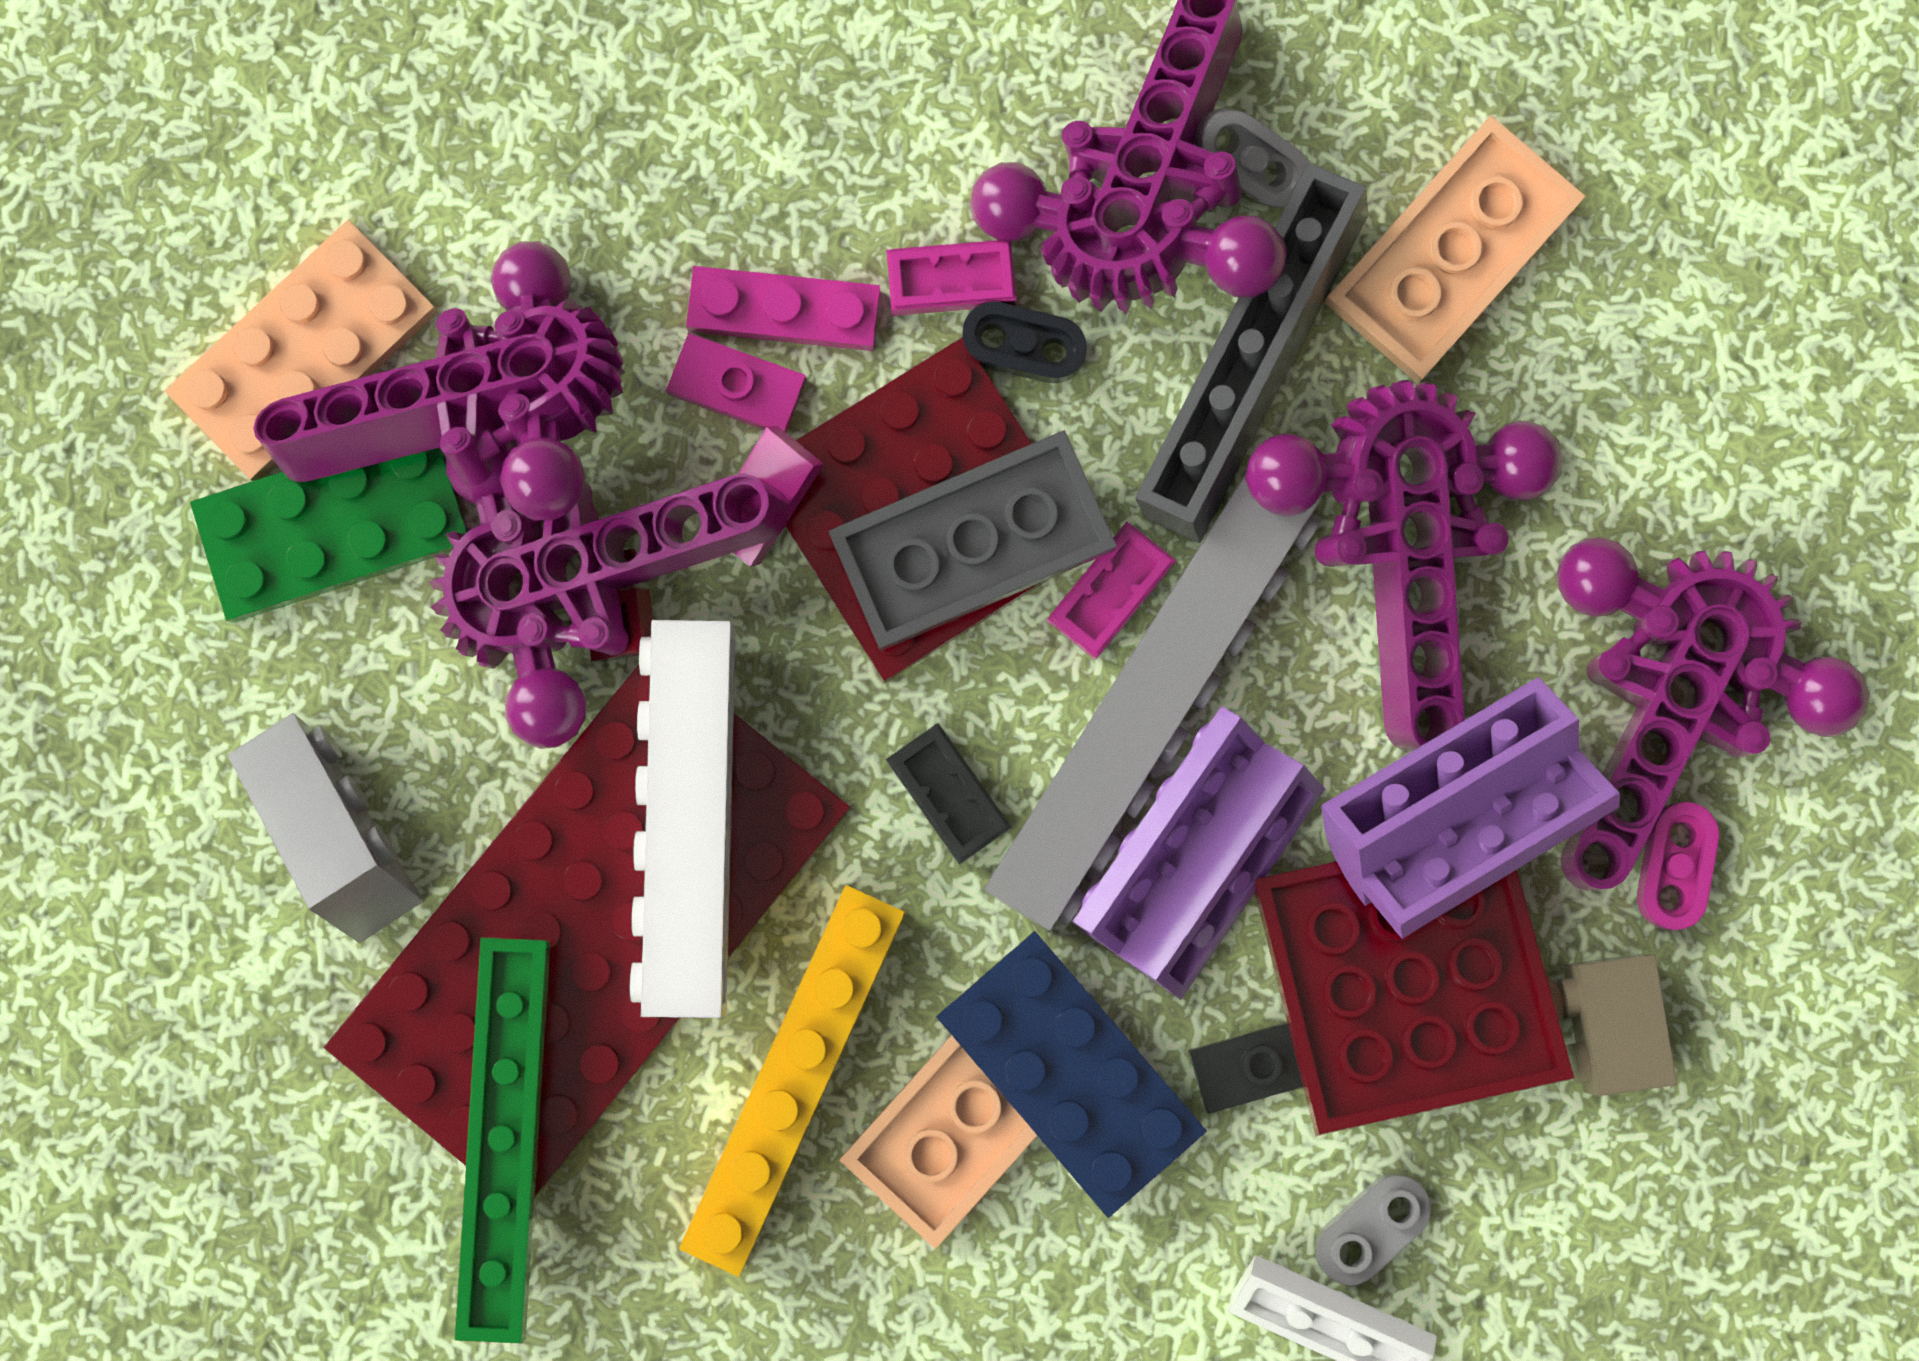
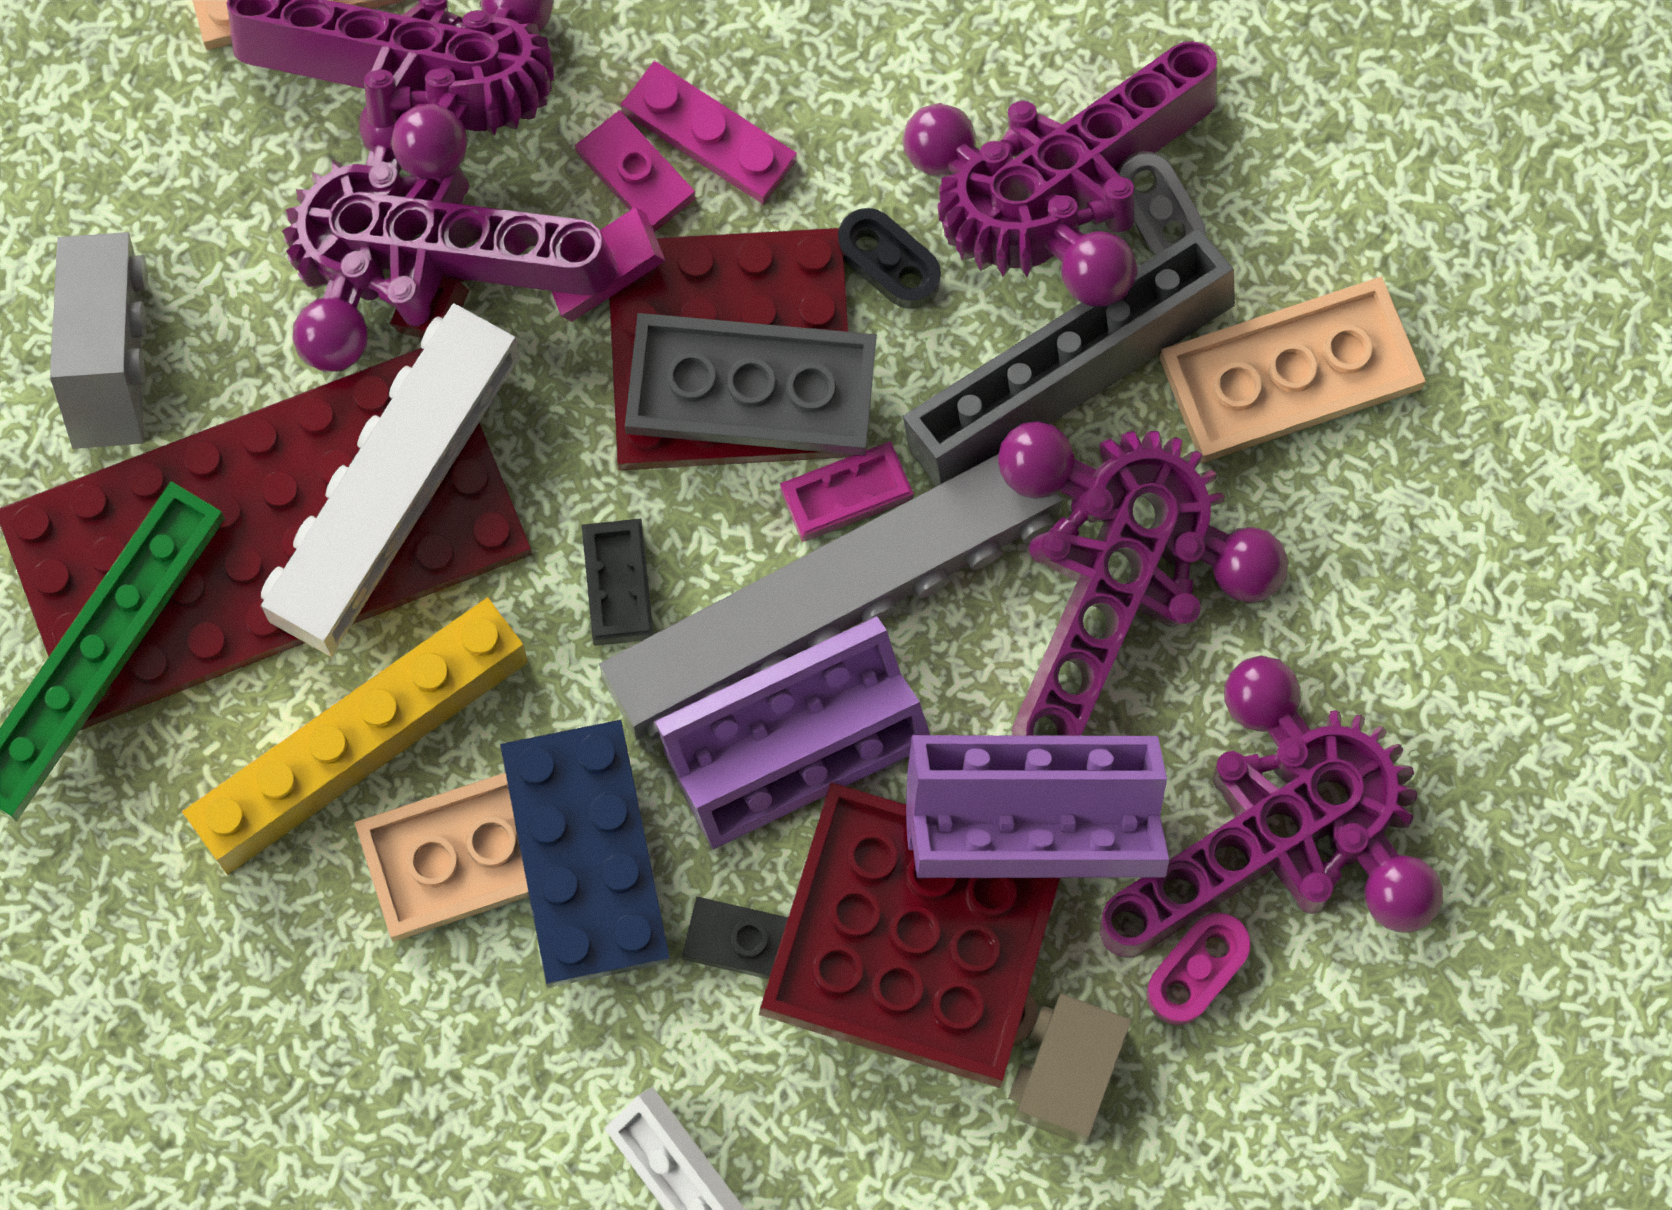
camera: 30 degrees right, 10 degrees down
(298, 540) = (221, 111): green plate -> none
(950, 277) = (858, 175): dark pink plate -> none
(1370, 1225) = (767, 1133): light grey plate -> none

